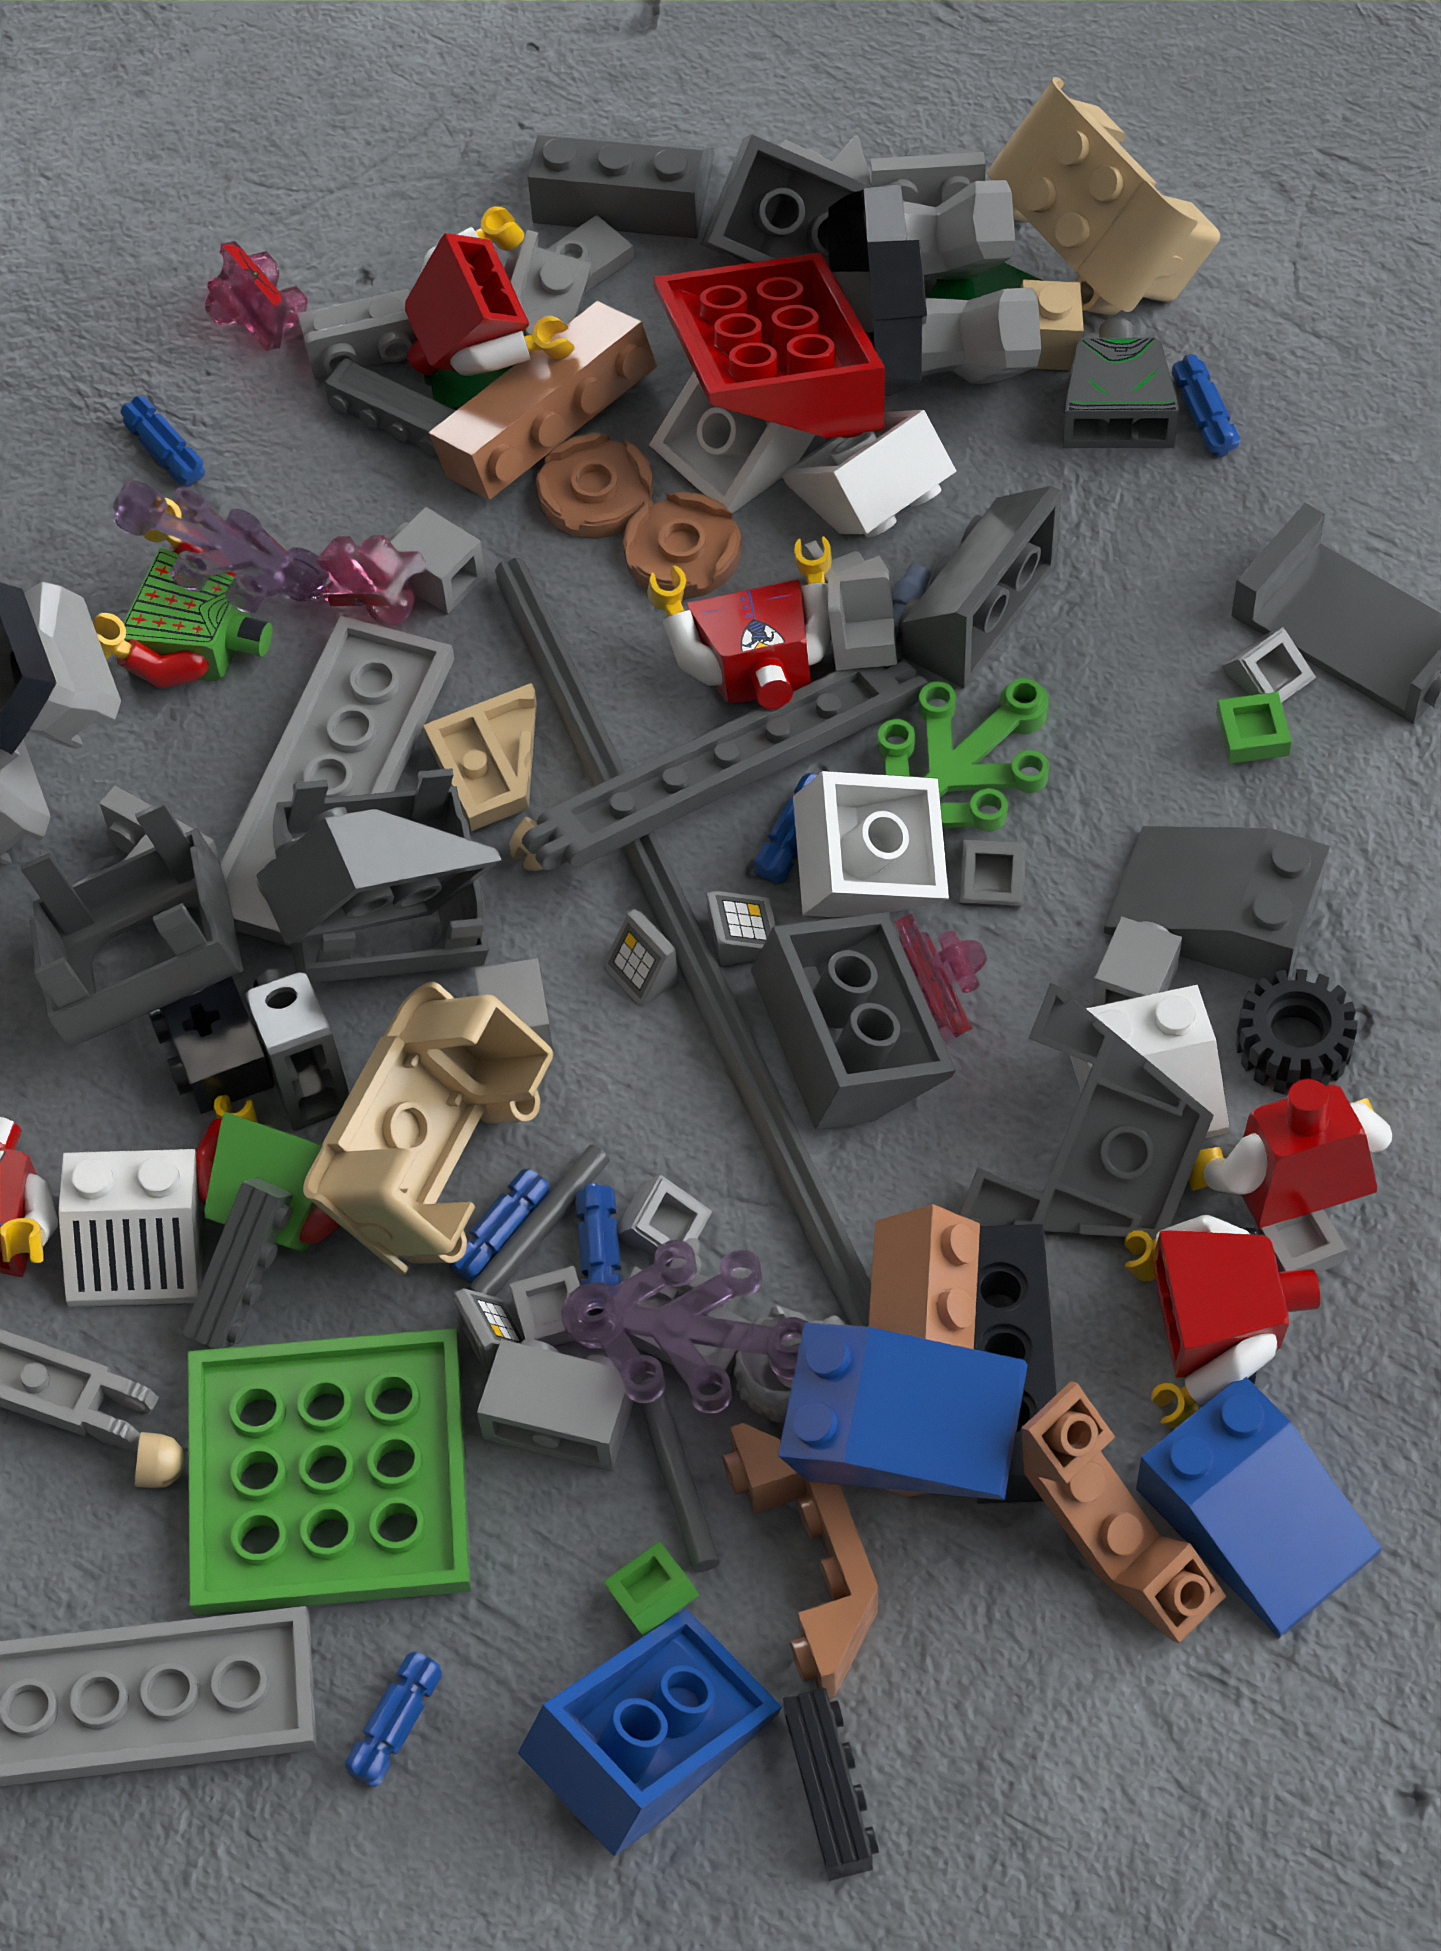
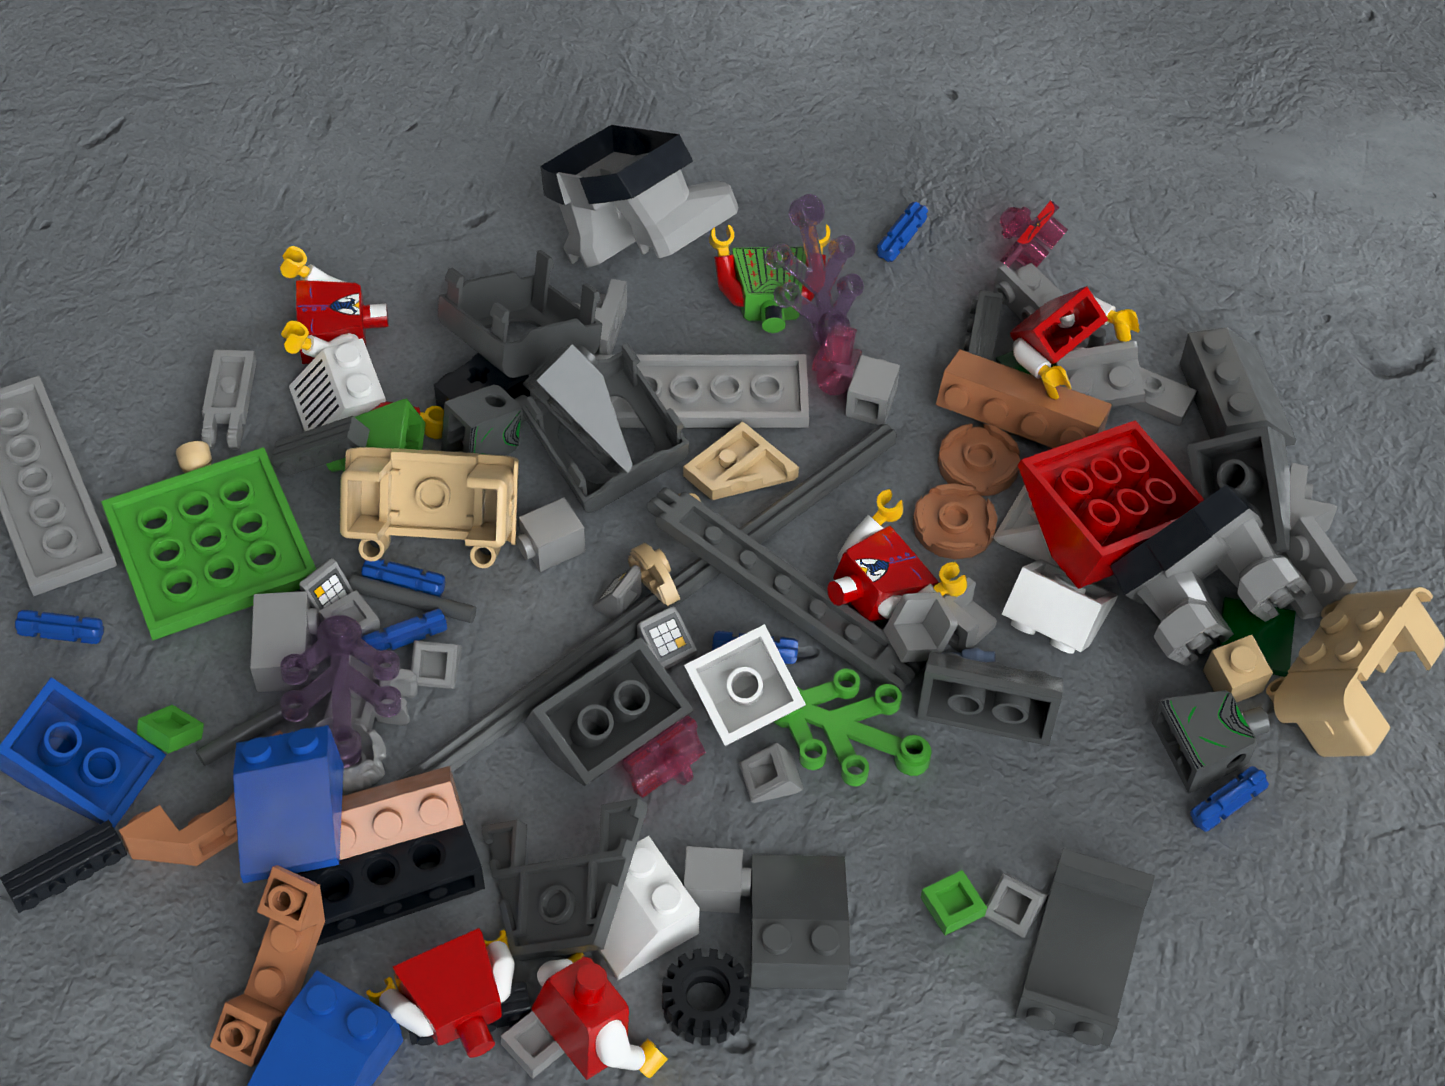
camera: 65 degrees right, 5 degrees down
(650, 892) = (655, 572): none -> tan plate

